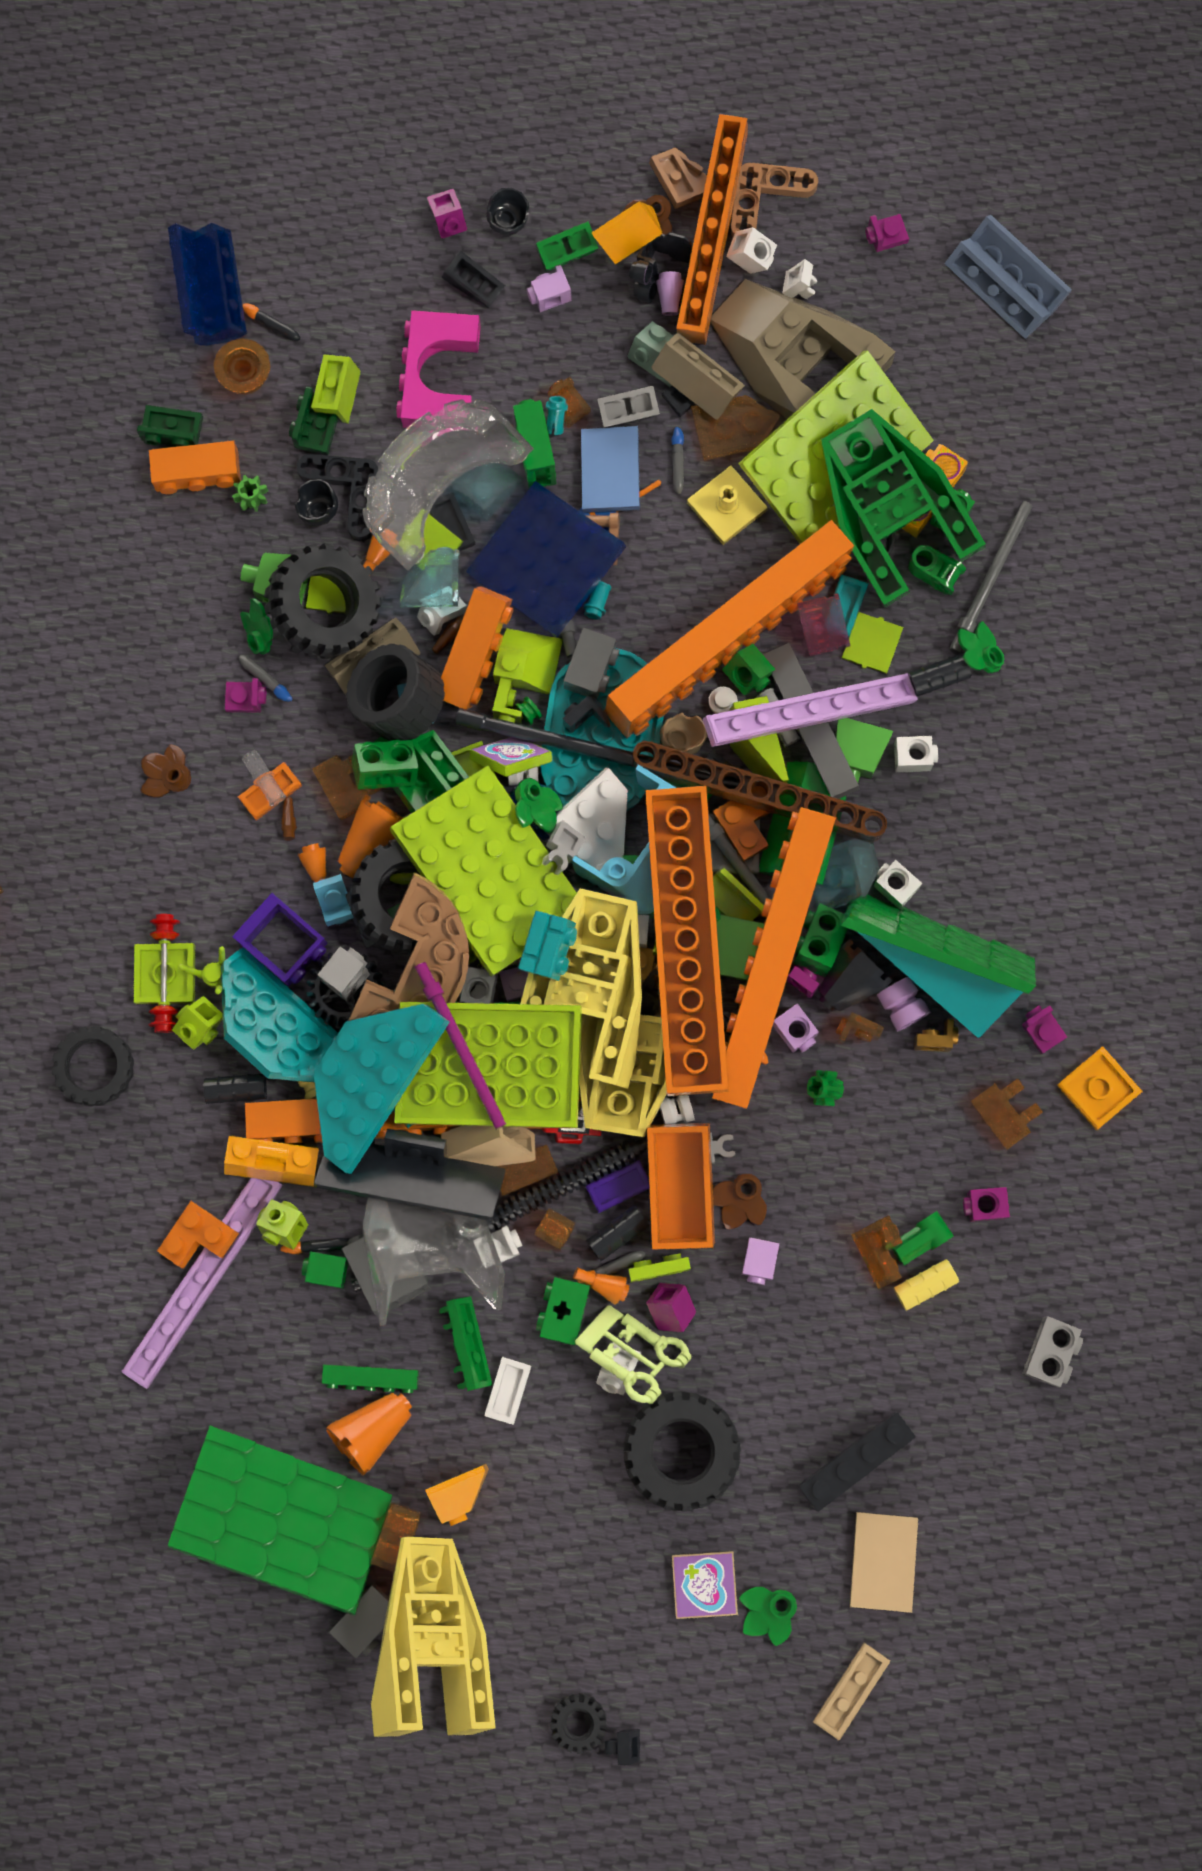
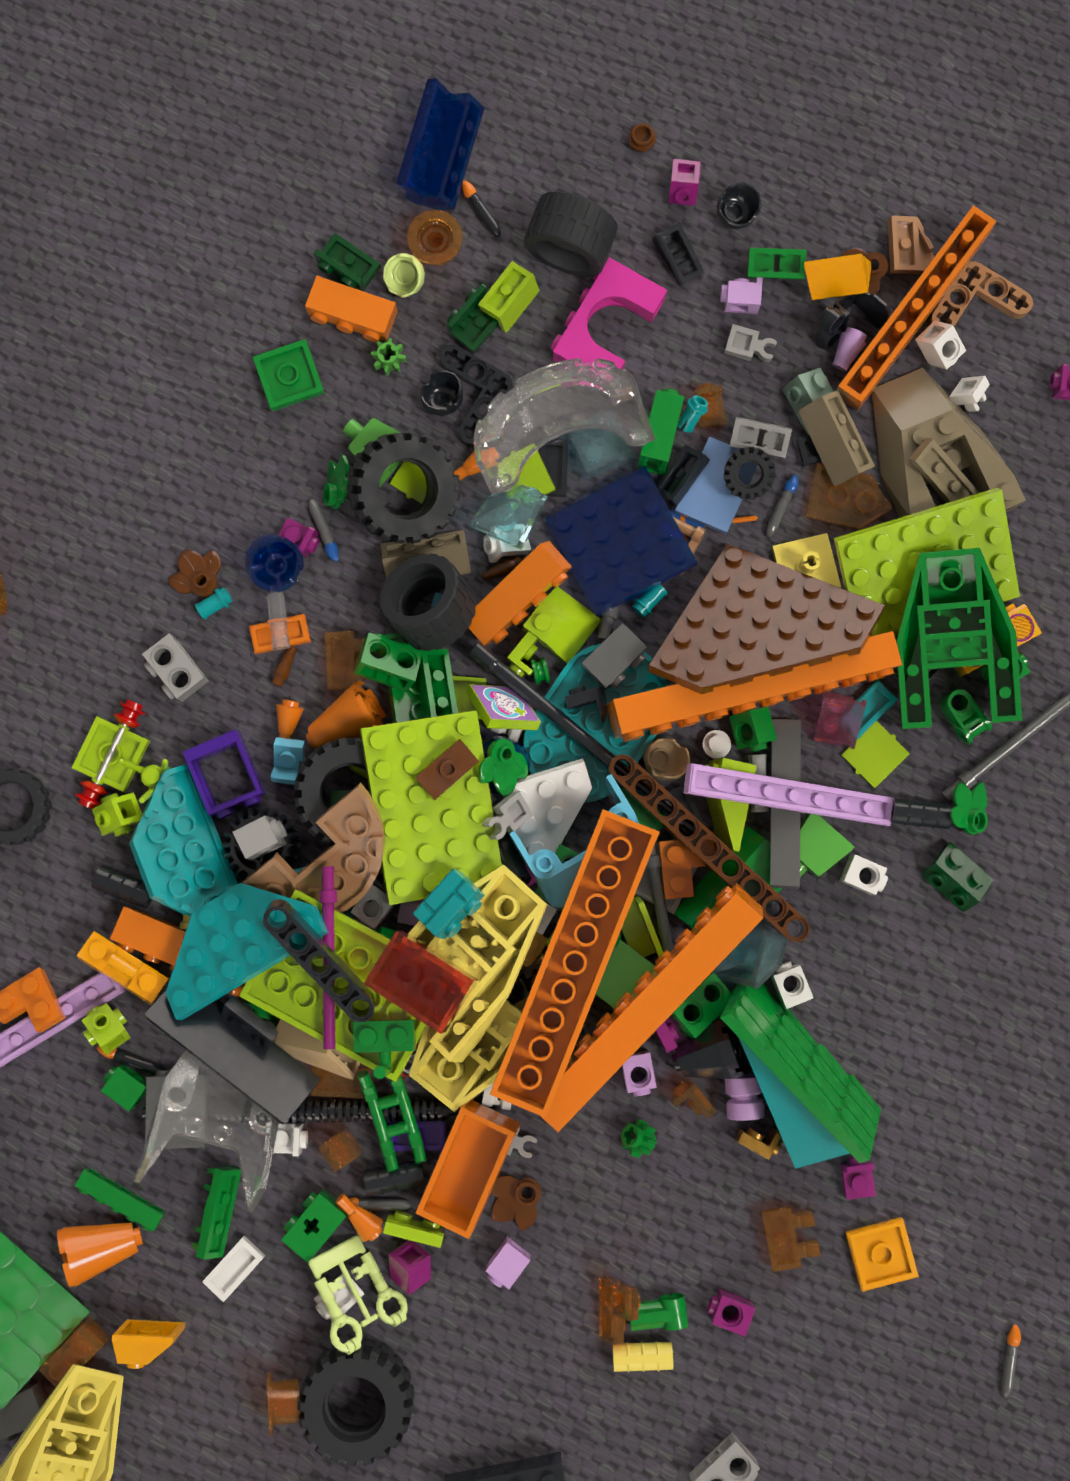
camera: 20 degrees right, 5 degrees up
(165, 552) = (288, 375): none -> green plate
(190, 861) = (179, 664): none -> light grey brick
(195, 790) = (214, 603): none -> teal pin
(228, 413) = (403, 275): none -> yellowish green hair
(234, 725) = (273, 562): none -> clear blue cylinder
(366, 305) = (571, 233): none -> black tyre
(389, 191) = (642, 137): none -> reddish brown plate
(469, 1048) = (324, 974): none -> black beam
(486, 828) = (446, 769): none -> reddish brown plate
(546, 1092) = (384, 1037): none -> green plate
(555, 1020) = (420, 981): none -> clear red brick
(572, 330) = (745, 342): none -> light grey plate
(576, 475) = (684, 477): none -> black tile
(588, 1192) = (385, 1132): none -> green piece
(612, 1485) = (282, 1402): none -> clear orange piece
(616, 448) = (755, 490): none -> black tyre
(705, 566) = (760, 621): none -> plate
(805, 361) = (941, 472): none -> dark tan plate
(1001, 717) = (957, 877): none -> dark green bracket

